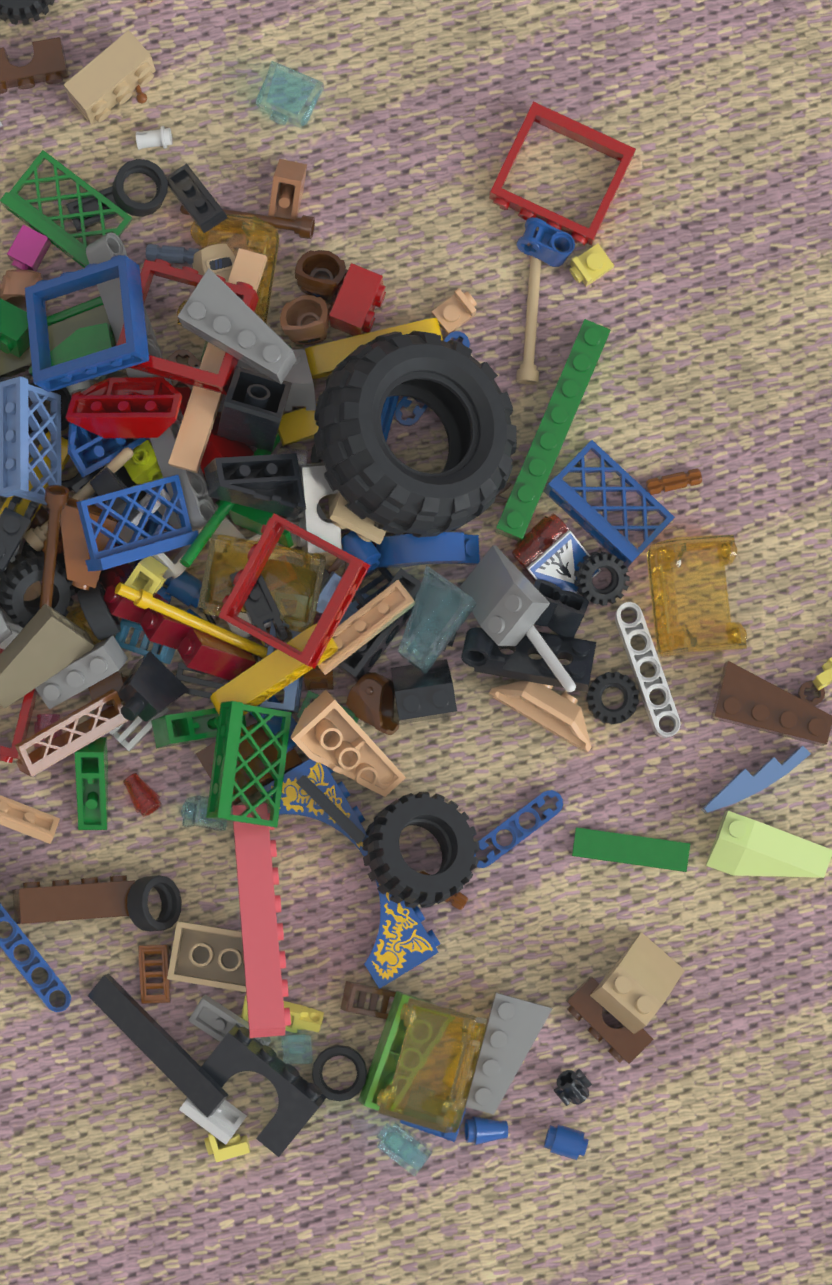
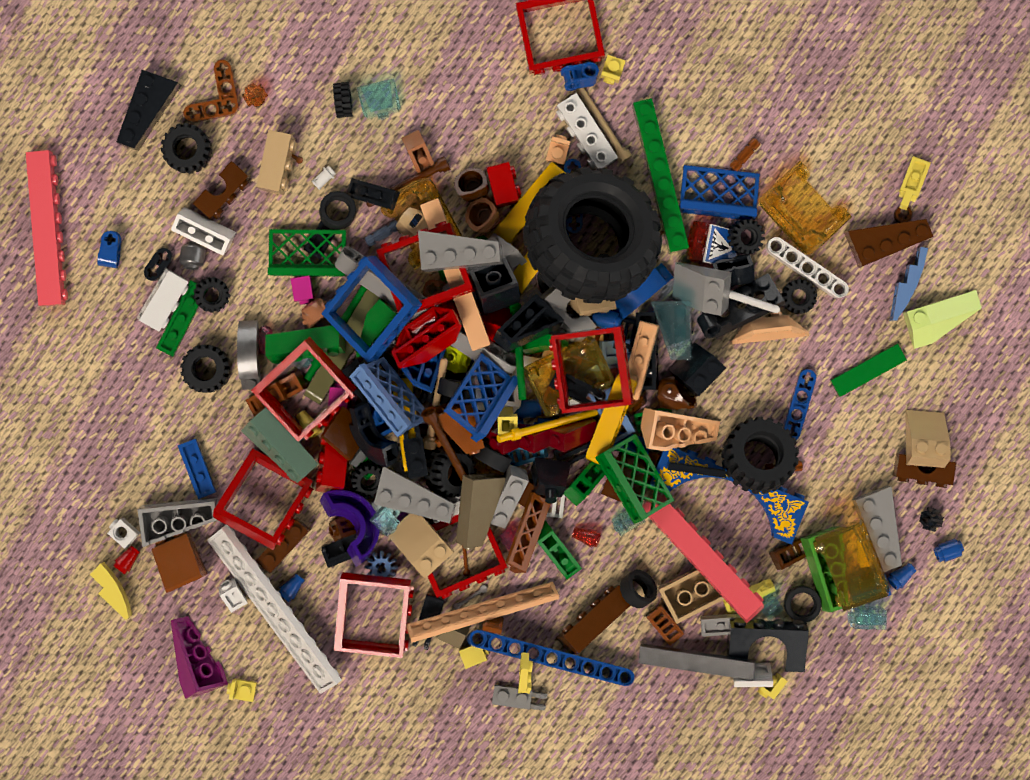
camera: 35 degrees left, 5 degrees up
(244, 63) = (342, 99): none -> black tyre
(504, 314) = (586, 132): none -> white brick

